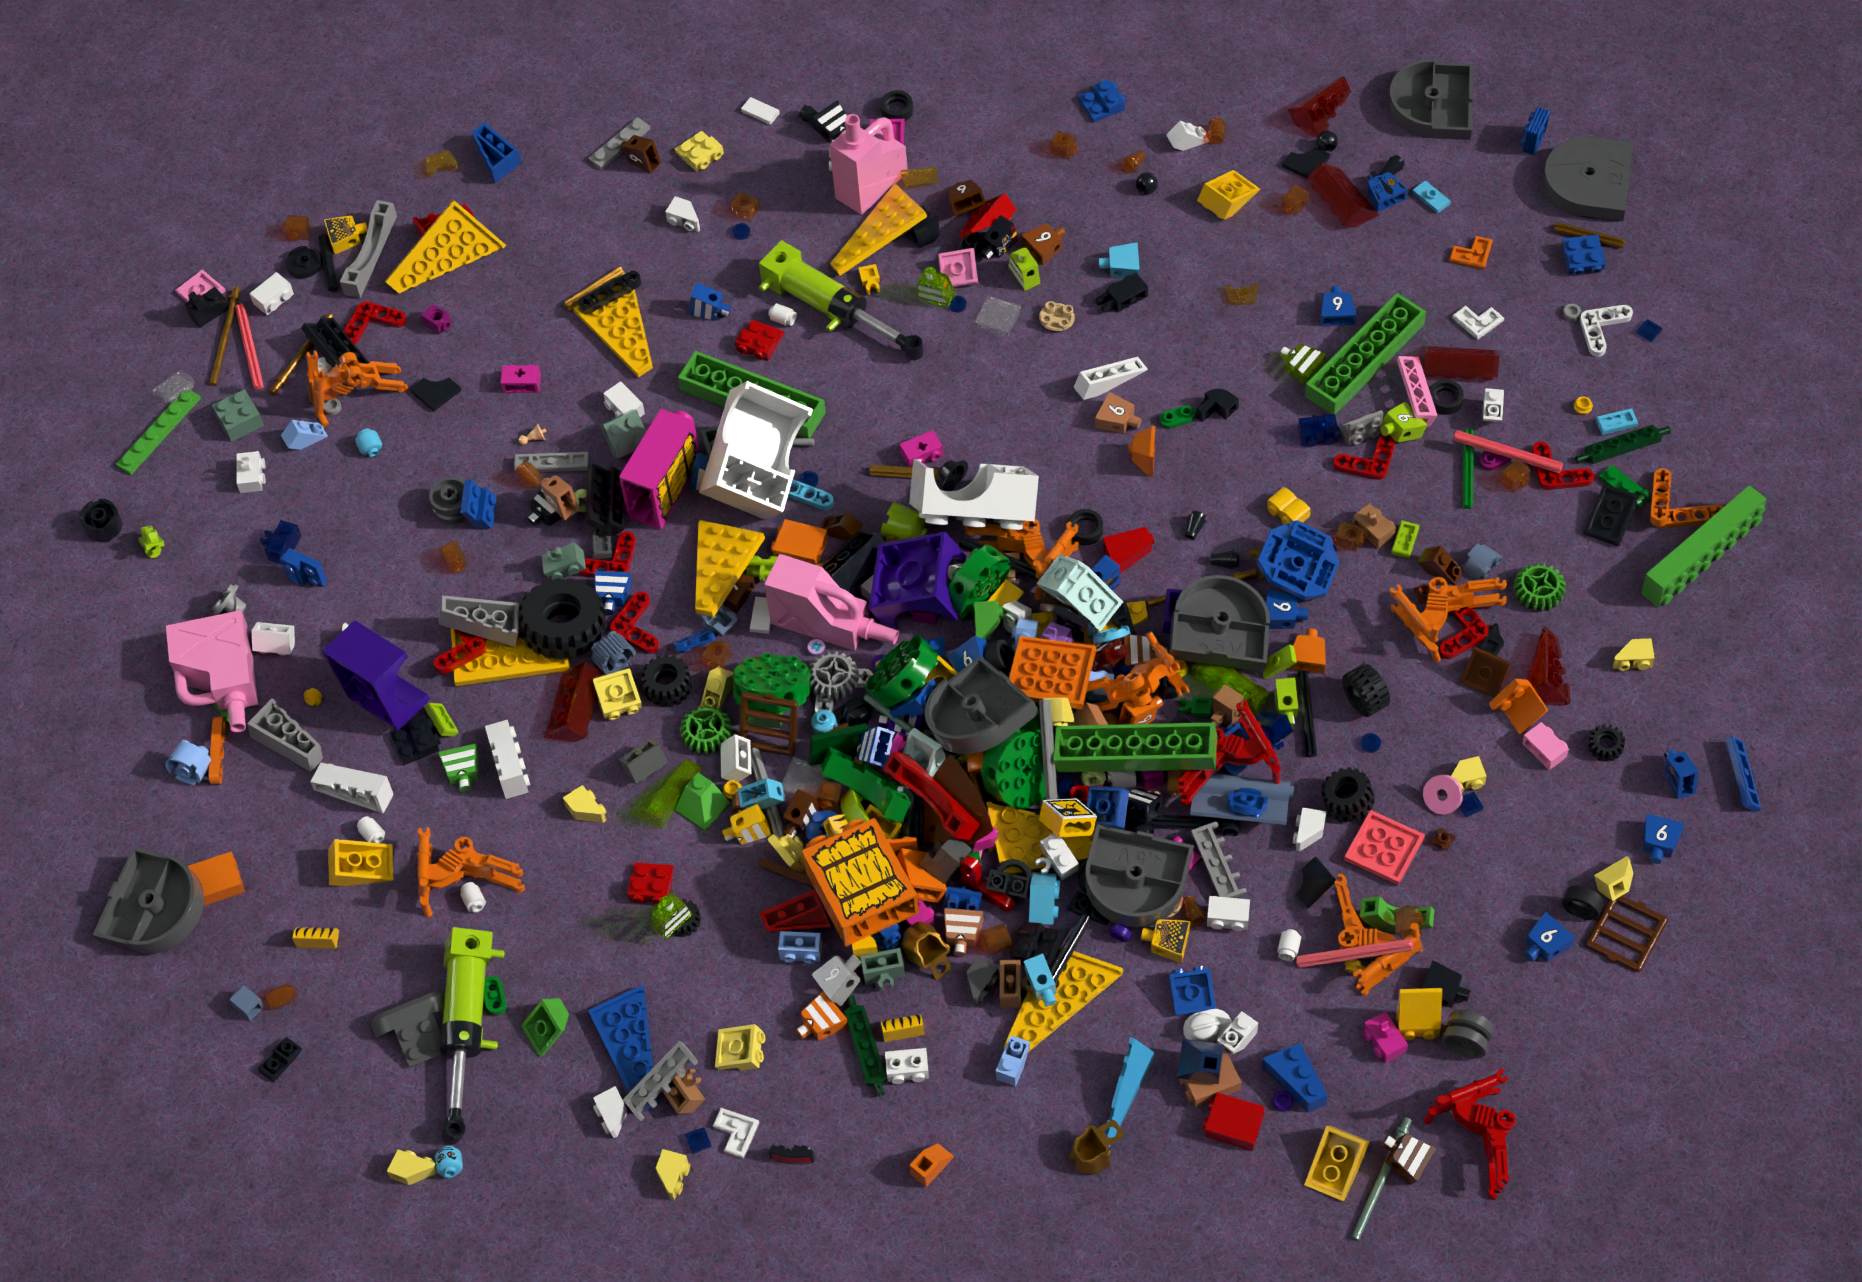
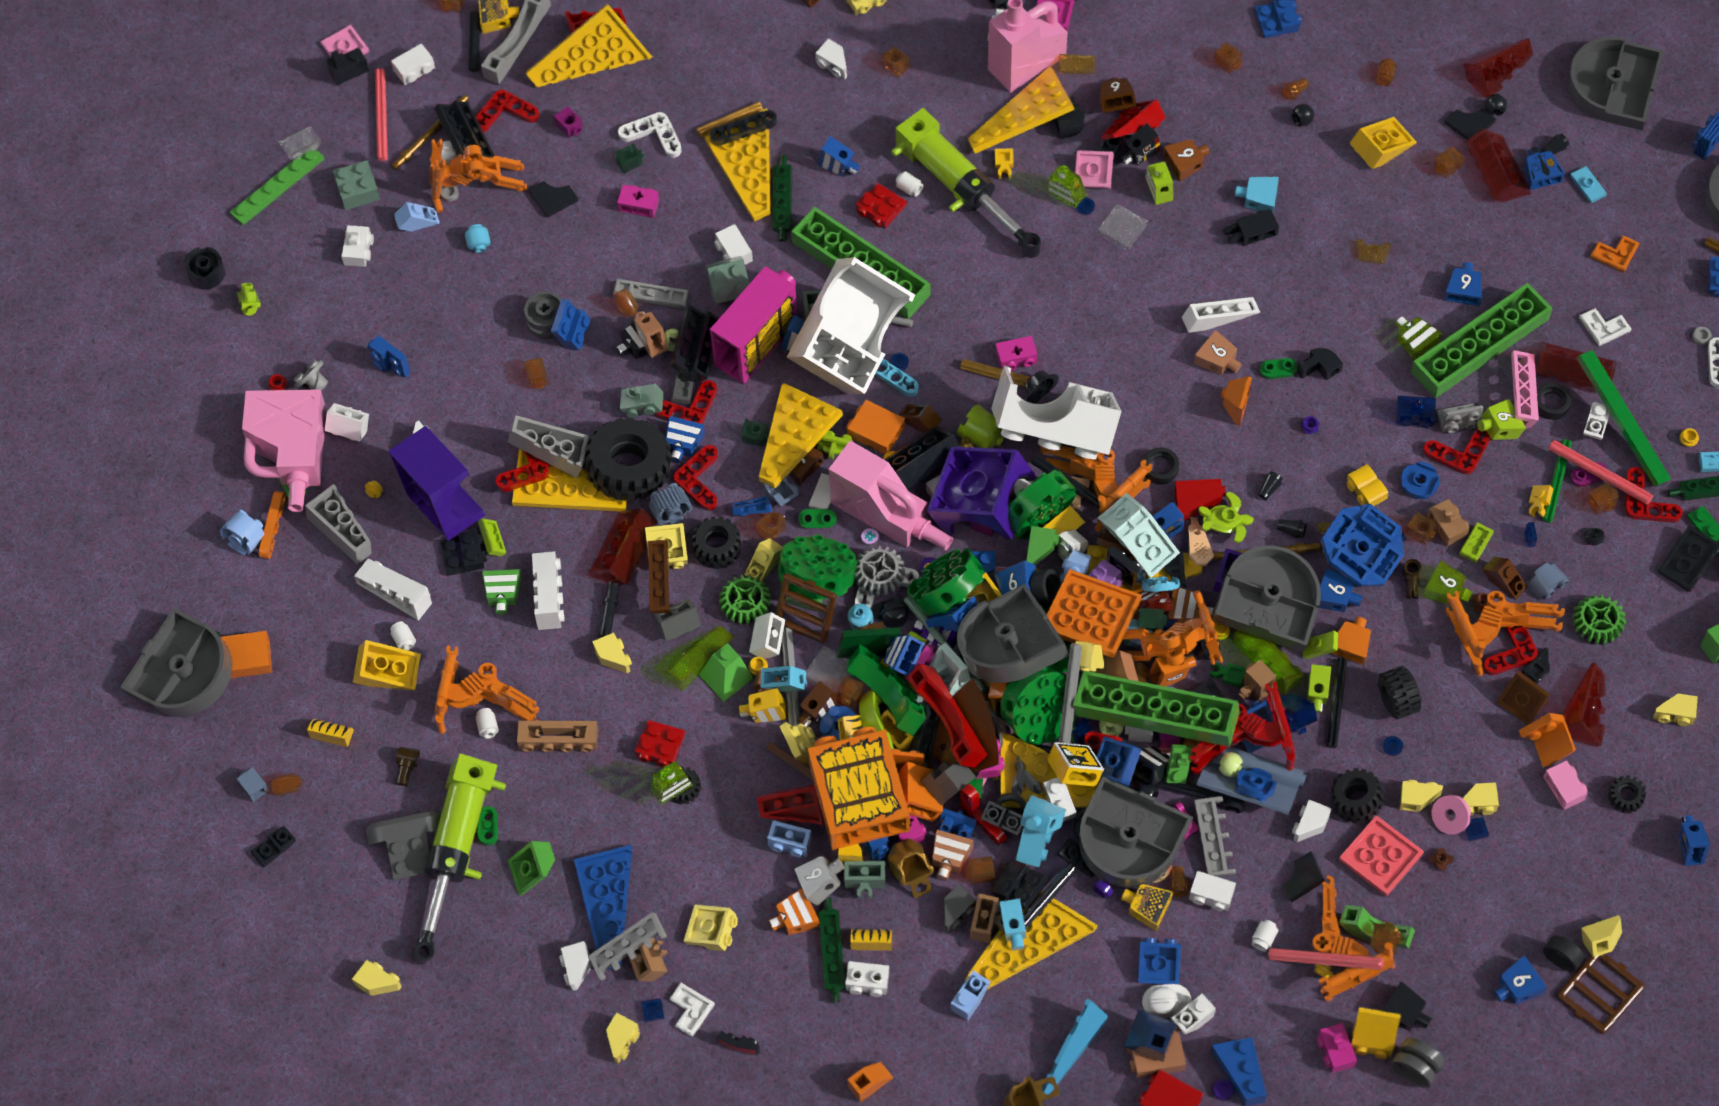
camera: 10 degrees right, 5 degrees up
(195, 611) = (277, 378): none -> red plate
(233, 298) = (375, 61): pearl gold bar -> none
(284, 537) = (373, 324): clear blue brick -> none
(310, 256) = (454, 44): black plate -> none
(398, 949) = (406, 761): none -> dark brown pin
(448, 1161) = (413, 981): medium azure head -> none
(503, 341) = (629, 158): none -> clear green brick
(526, 309) = (660, 129): none -> white beam
(535, 434) = (642, 262): light nougat piece -> none
(546, 895) = (529, 737): none -> medium nougat brick
(572, 759) = (610, 603): none -> black pin
(616, 722) = (658, 577): none -> reddish brown plate
(661, 351) = (782, 198): none -> dark green plate
(682, 572) = (754, 433): none -> clear green brick
(741, 231) = (887, 87): clear blue tile -> none
(761, 639) = (817, 518): none -> green plate
(987, 795) = (1000, 725): none -> dark grey piece
(1019, 841) = (1022, 777): none -> dark grey piece
(1044, 872) = (1042, 816): none -> medium azure torso
(1056, 316) = (1181, 239): tan dish -> none
(1110, 666) = (1151, 619): none -> clear green brick
(1139, 592) = (1199, 546): none -> light nougat piece
(1160, 563) = (1226, 519): none -> lime animal
(1168, 798) = (1178, 764): none -> bright green plate
(1186, 136) = (1354, 72): white slope -> none
(1218, 789) = (1230, 764): none -> yellowish green piece
(1220, 458) = (1310, 420): none -> dark purple plate
(1333, 501) = (1422, 490): none -> blue plate
(1351, 584) = (1412, 578): none -> dark brown pin
(1383, 579) = (1444, 581): none -> clear neon green torso
(1405, 784) = (1417, 796): none -> light yellow slope
(1455, 487) = (1539, 497): none -> yellow plate
(1455, 522) = (1530, 534): none -> clear blue tile
(1515, 512) = (1594, 536): none -> black tile
(1517, 398) = (1623, 418): none -> green tile
(1660, 837) = (1658, 902): blue torso -> none

